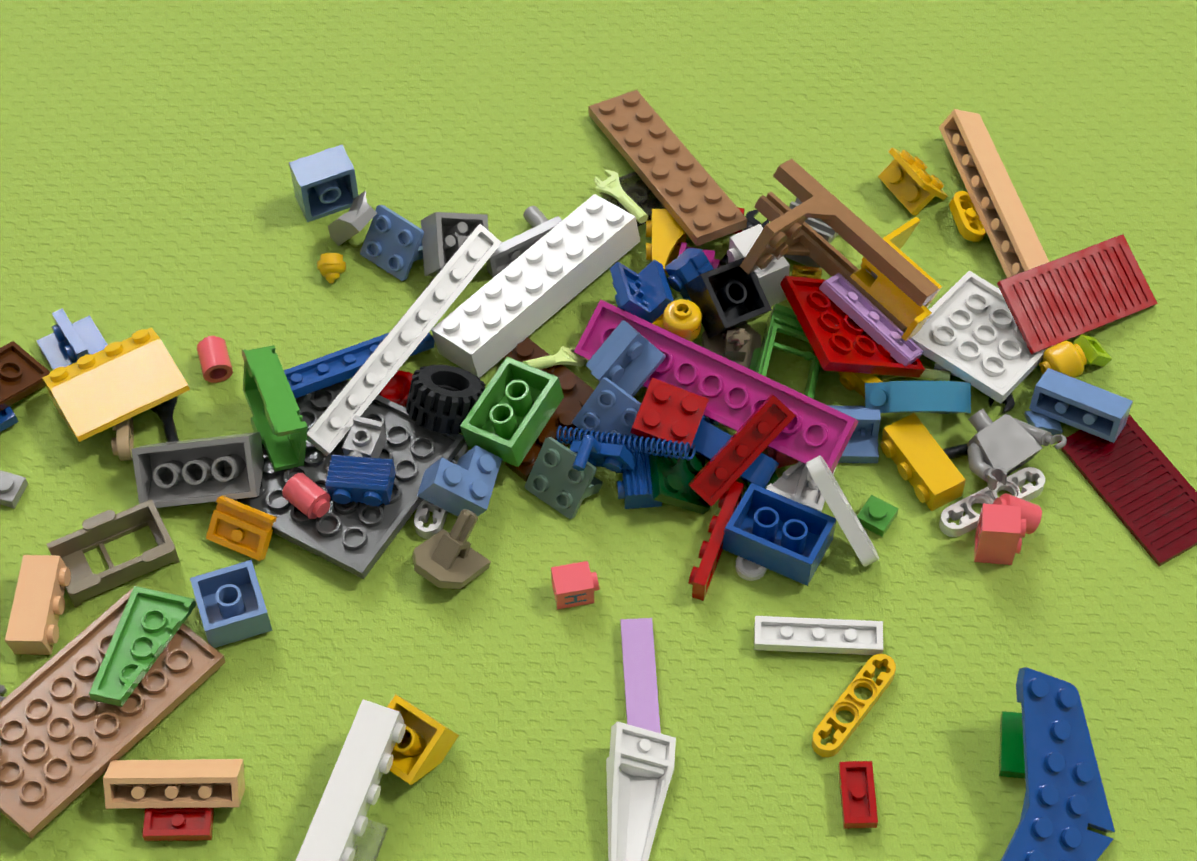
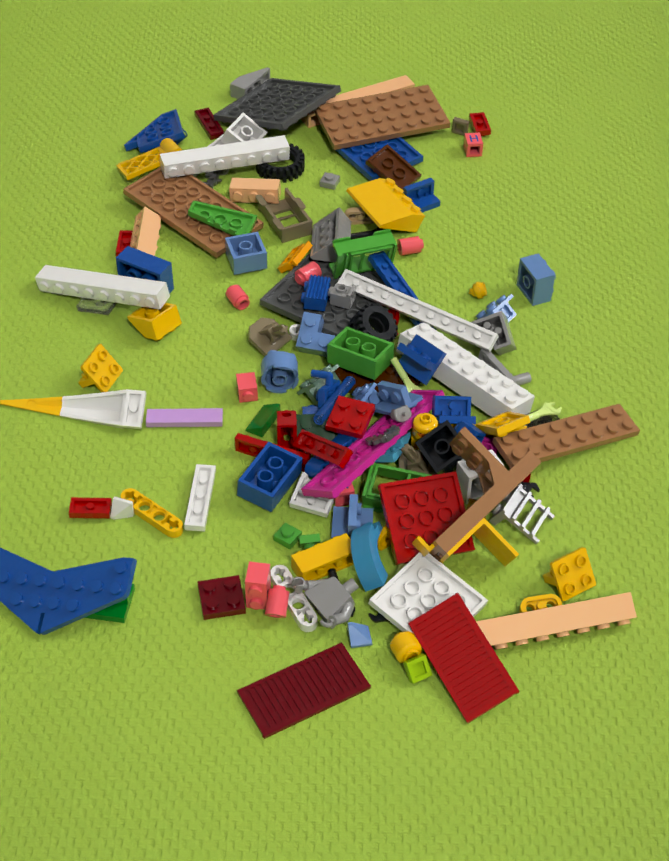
camera: 90 degrees right, 10 degrees down
(288, 765) = (142, 265): none -> blue brick
(342, 616) = (237, 297): none -> coral brick
(352, 221) = (501, 288): light grey slope -> none
(528, 326) = (420, 358): none -> blue bracket
(543, 822) = (100, 369): none -> yellow bracket
(546, 531) = (279, 371): none -> medium blue brick
(638, 559) = (263, 419): none -> green slope
(668, 345) = (401, 414): none -> light grey piece
(670, 225) = (503, 423): none -> yellow plate
(675, 516) = (286, 426): none -> red torso
(729, 370) = (391, 432): none -> flat silver animal
(842, 511) = (280, 502): white beam -> none
(856, 748) = (121, 508): none -> white slope
(870, 319) = (432, 526): lavender tile -> none
(892, 481) = (308, 541): none -> bright green plate
(1003, 594) = (221, 597): none -> dark red plate
(1080, 405) = (365, 650): medium blue brick -> none

